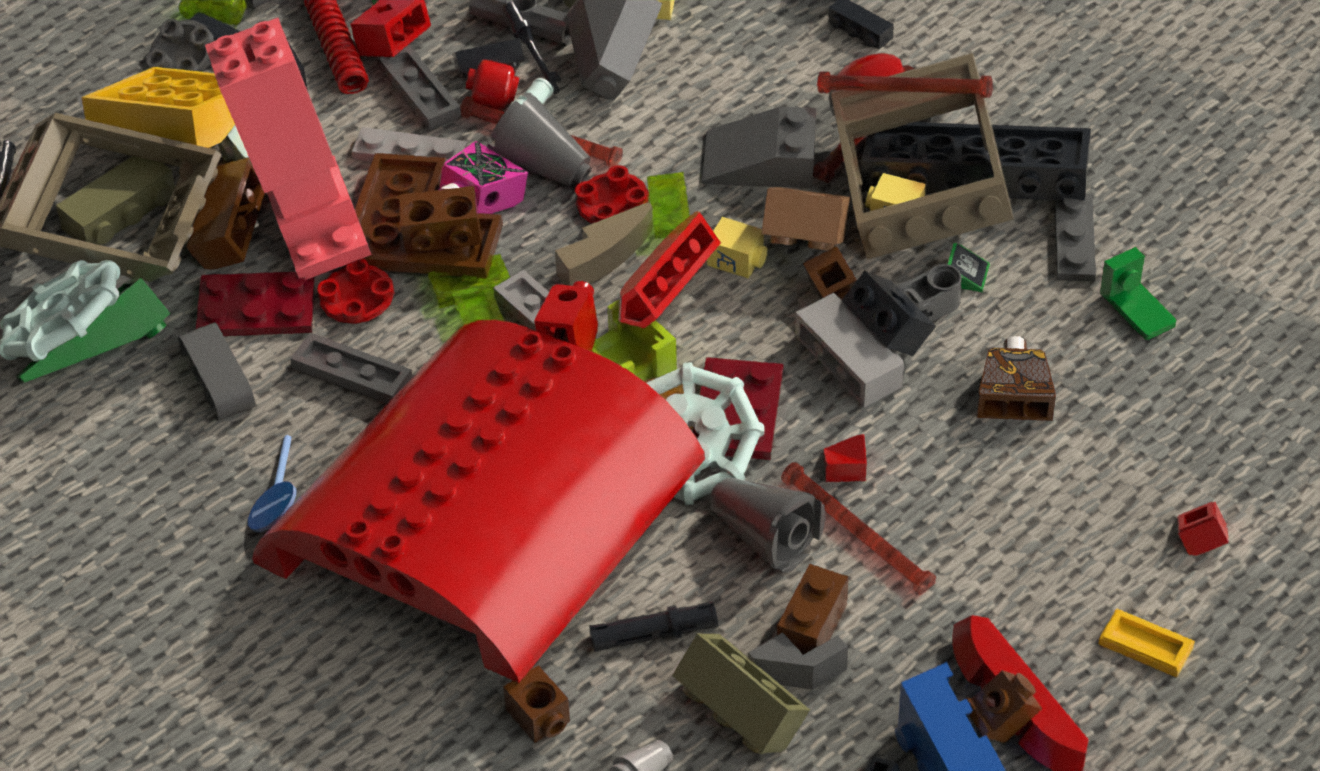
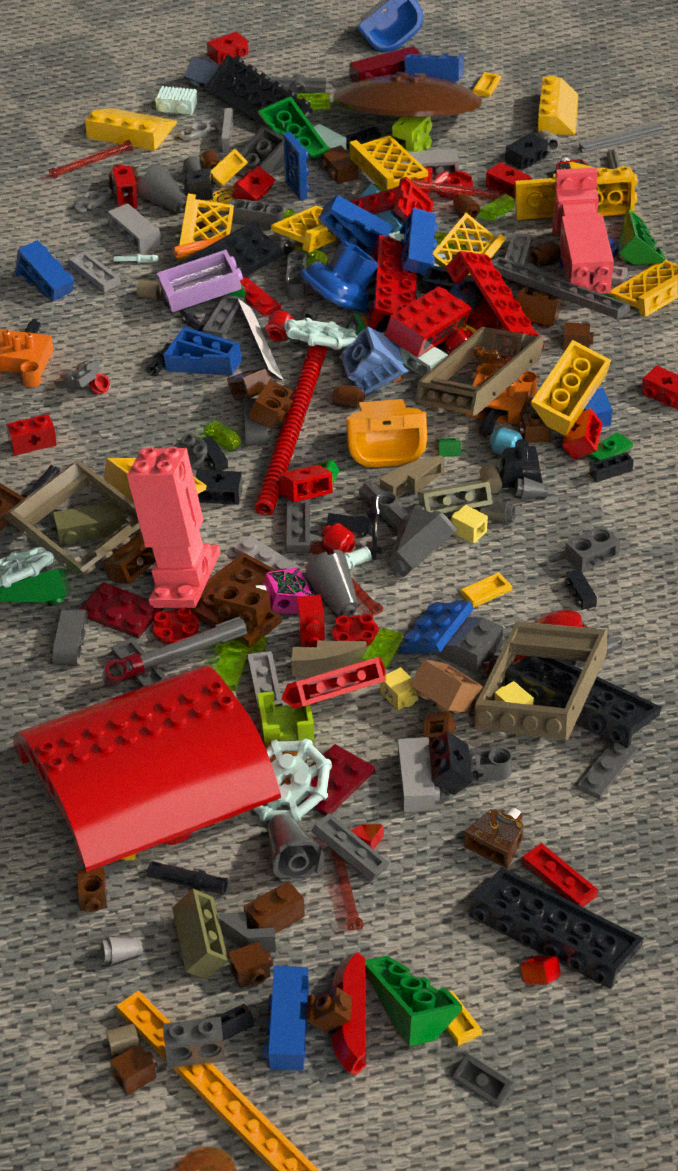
camera: 30 degrees right, 5 degrees down
(275, 500) = (54, 714): blue piece -> none
(358, 363) = (137, 664): none -> dark grey piece
(554, 206) = (310, 620): none -> red brick
(569, 314) = (253, 686): red torso -> none
(720, 147) = (435, 627): none -> blue plate
(737, 73) = (486, 589): none -> yellow tile
(837, 702) = (250, 964): none -> reddish brown brick
(844, 483) = (350, 847): none -> dark grey plate
(971, 266) = (525, 758): slope -> none
(980, 86) = (593, 651): clear red bar -> none
(1092, 653) = (411, 1003): none -> green wedge
(1124, 291) = (610, 817): green bracket -> none
(1131, 399) = (559, 875): none -> red plate
(1178, 466) = (554, 926): none -> black bracket
(1247, 704) = (483, 1080): none -> dark grey slope

